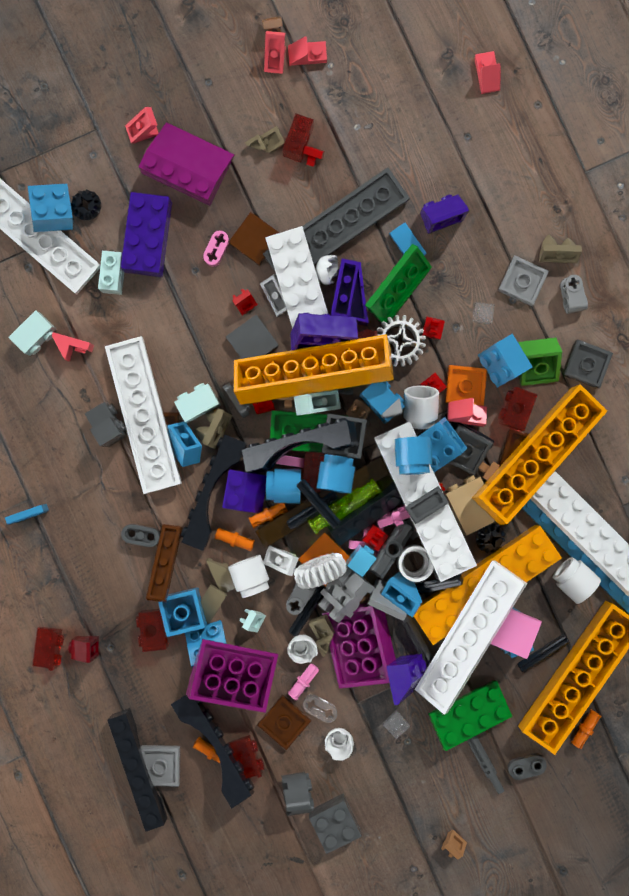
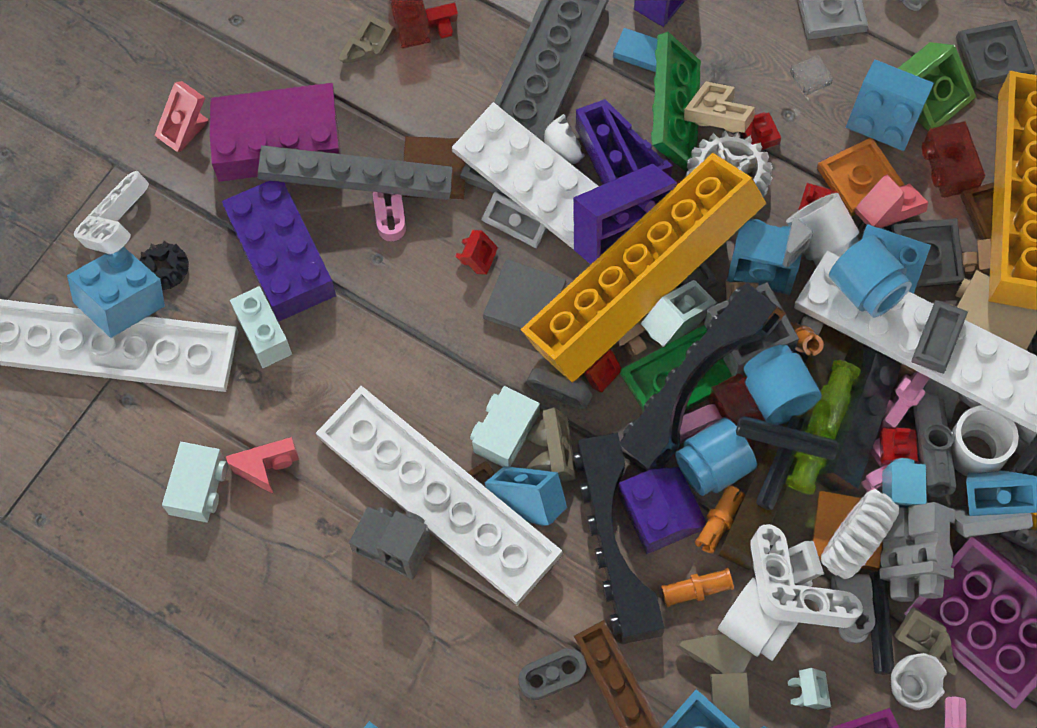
camera: 30 degrees left, 20 degrees down
(61, 163) = (101, 227): none -> white beam
(207, 219) = (355, 172): none -> dark grey plate
(266, 573) = (785, 589): none -> white beam
(368, 455) = (808, 340): none -> orange pin
(414, 302) = (715, 108): none -> tan plate

